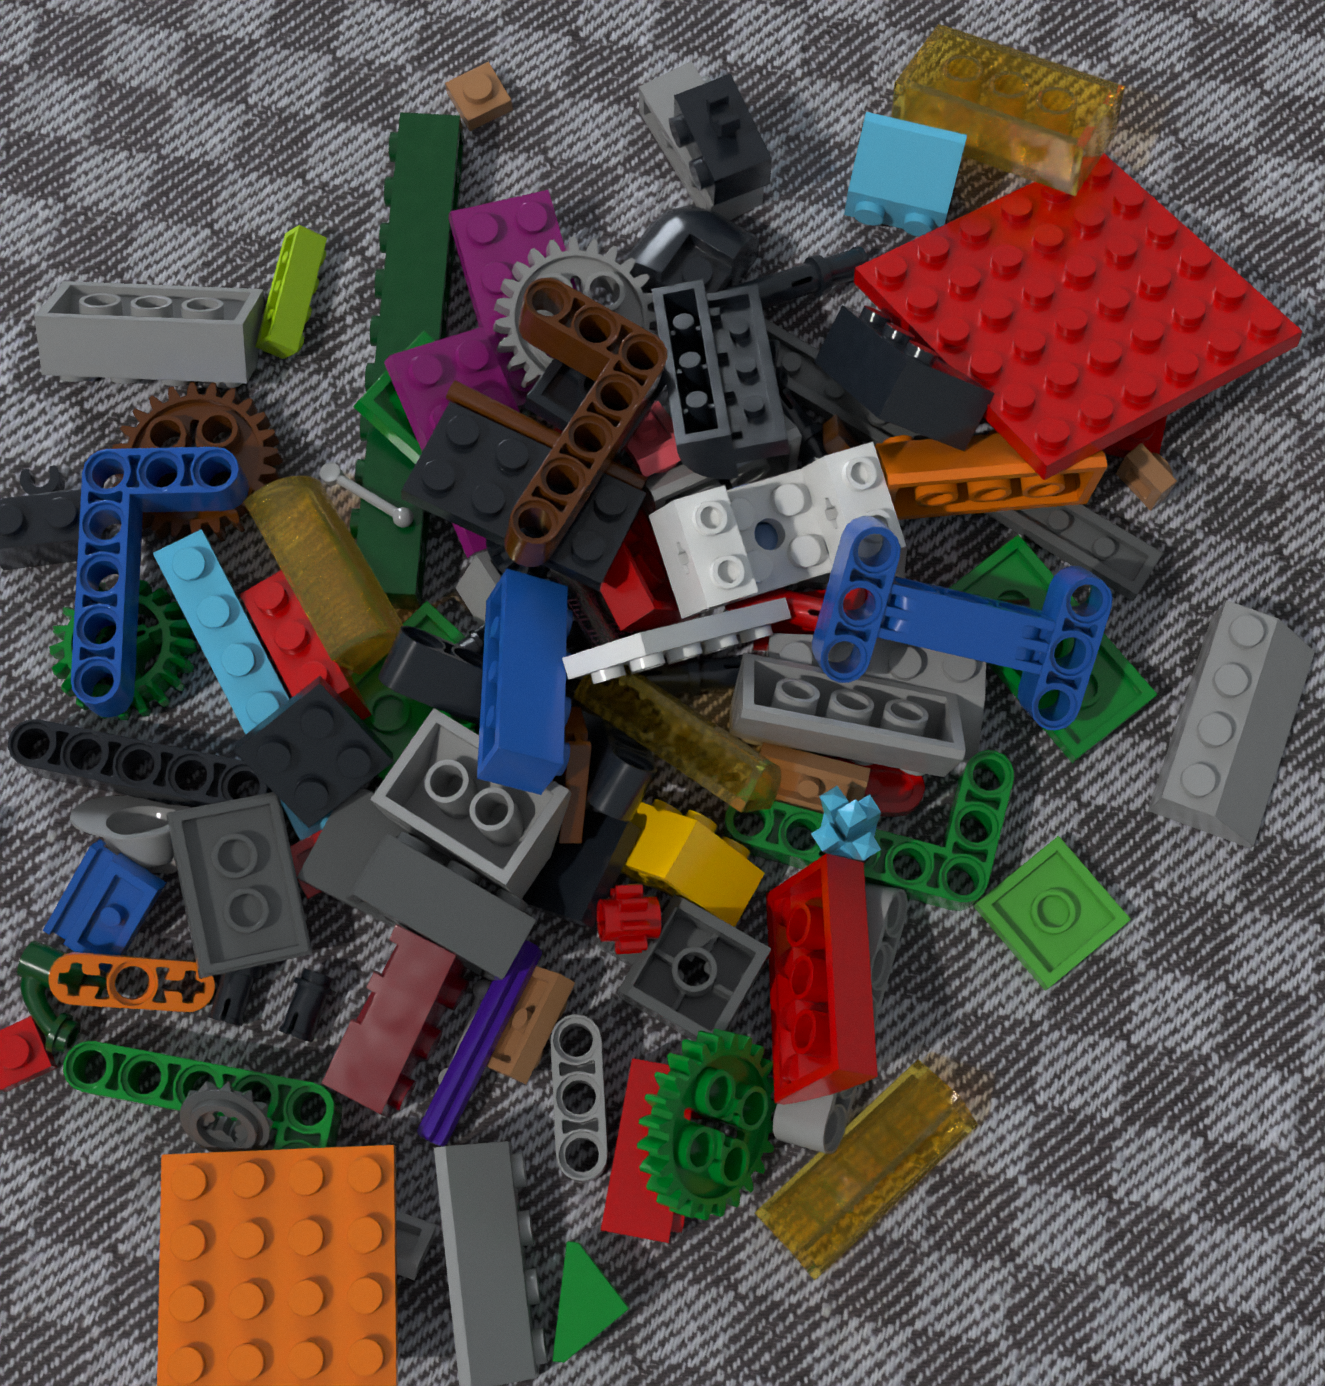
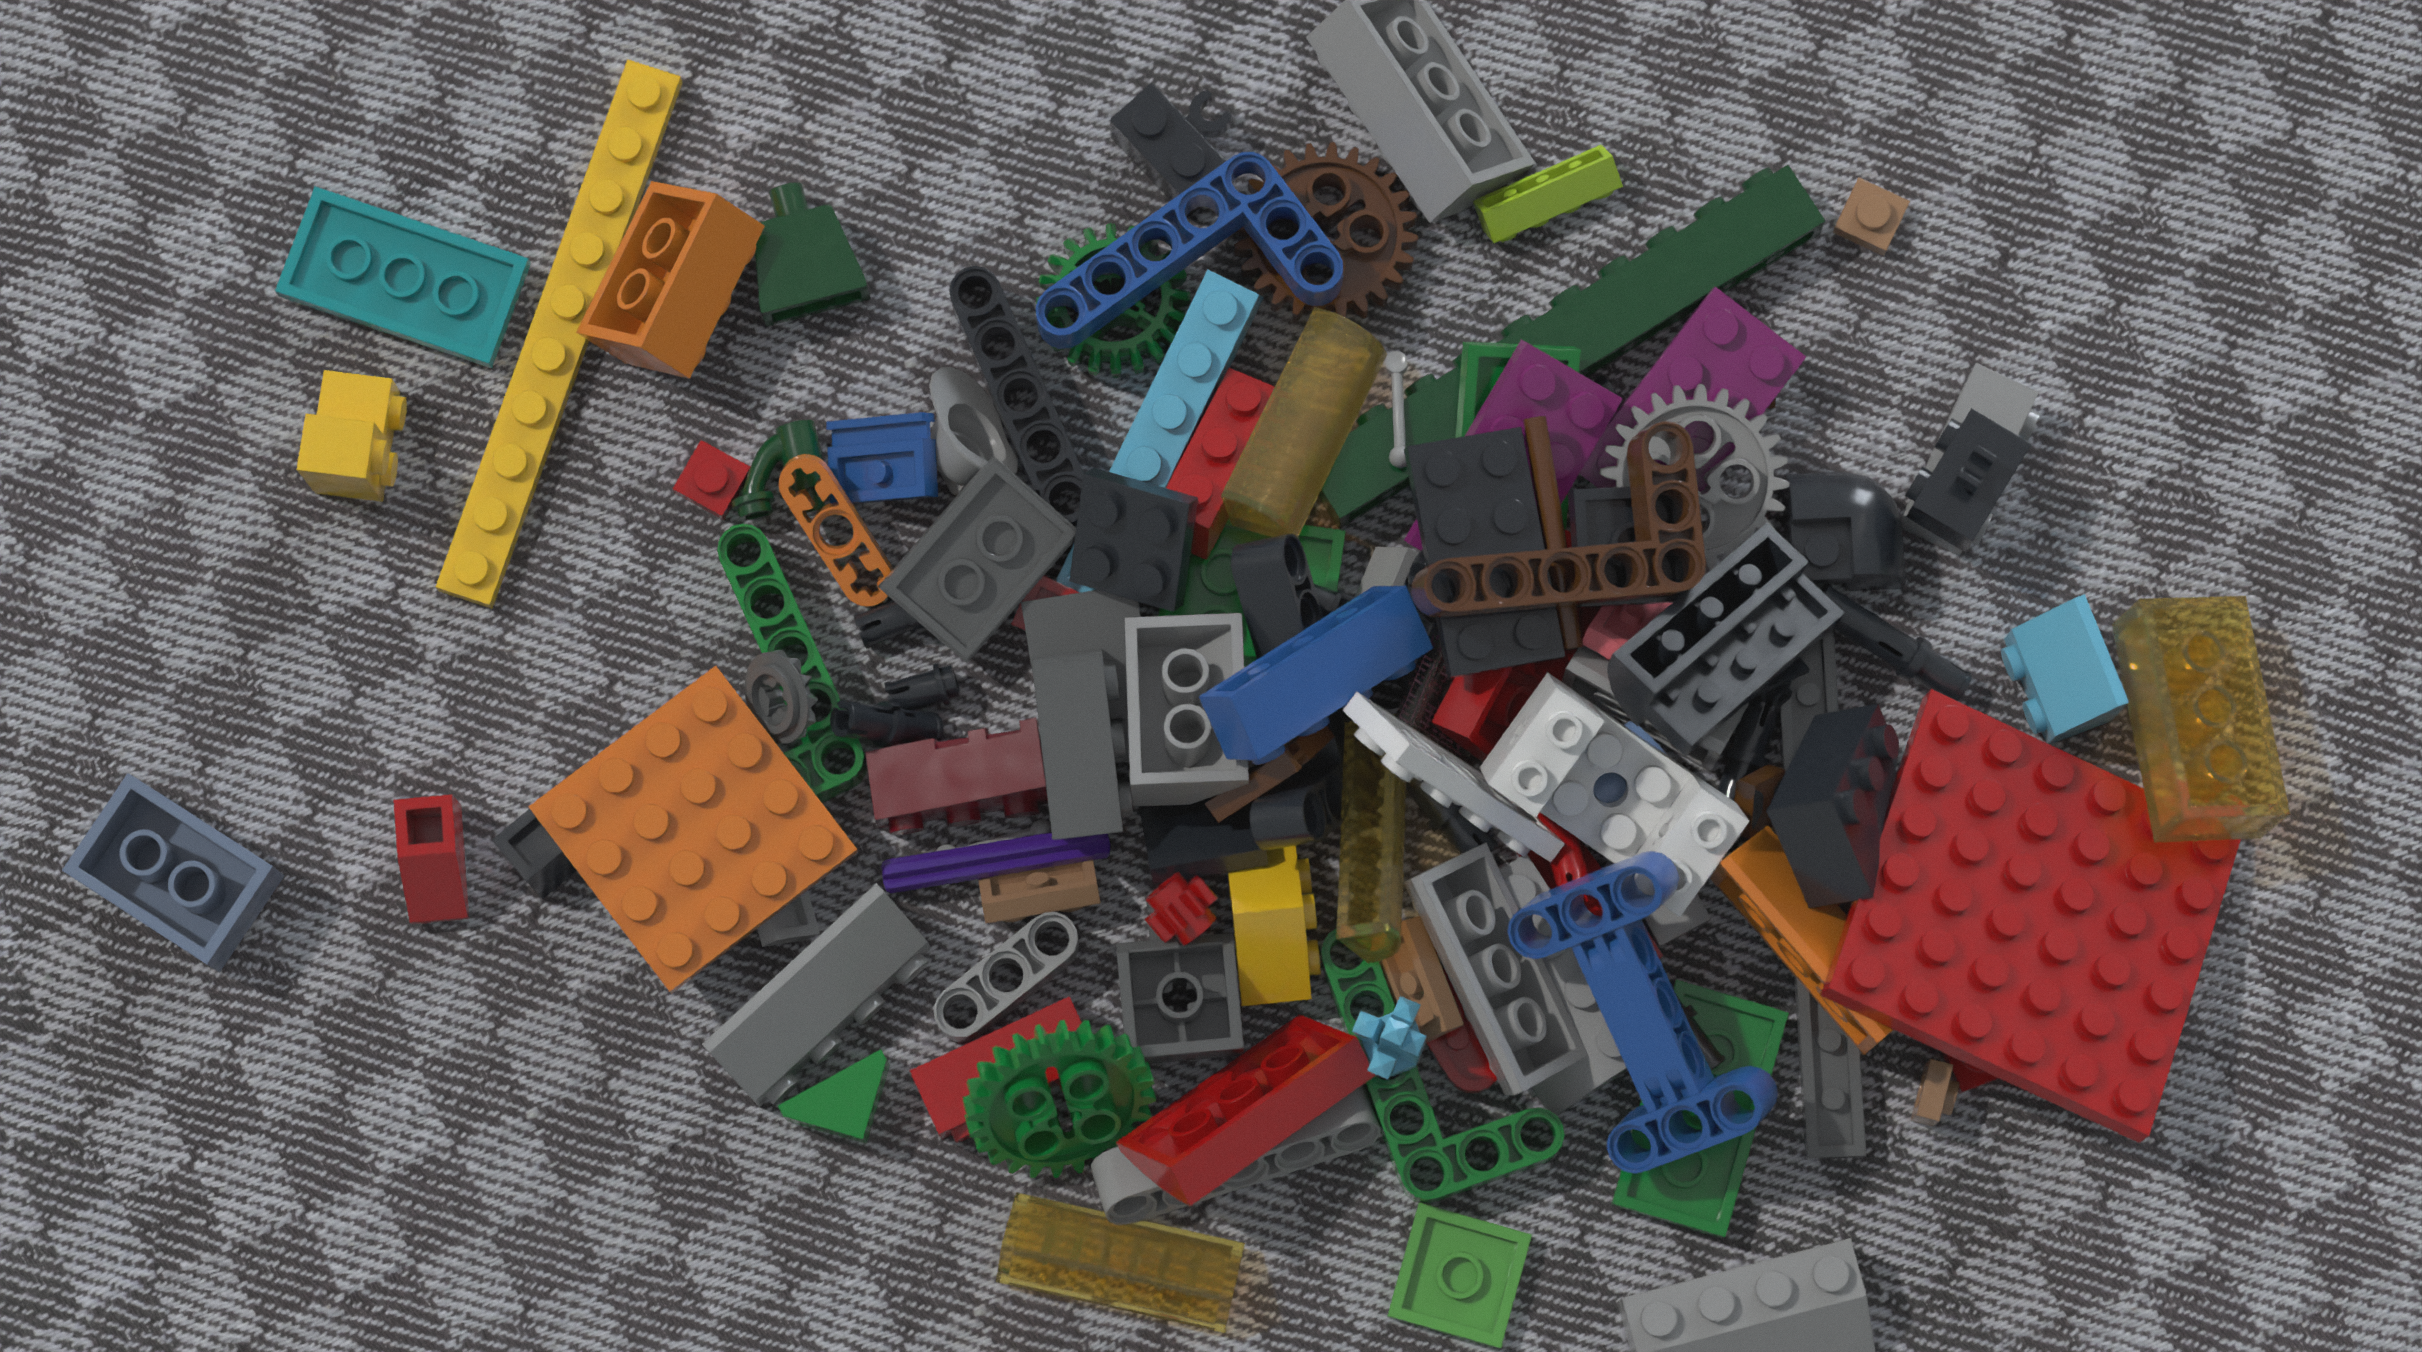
camera: 55 degrees right, 5 degrees up
(309, 1052) = (884, 723): none -> black pin

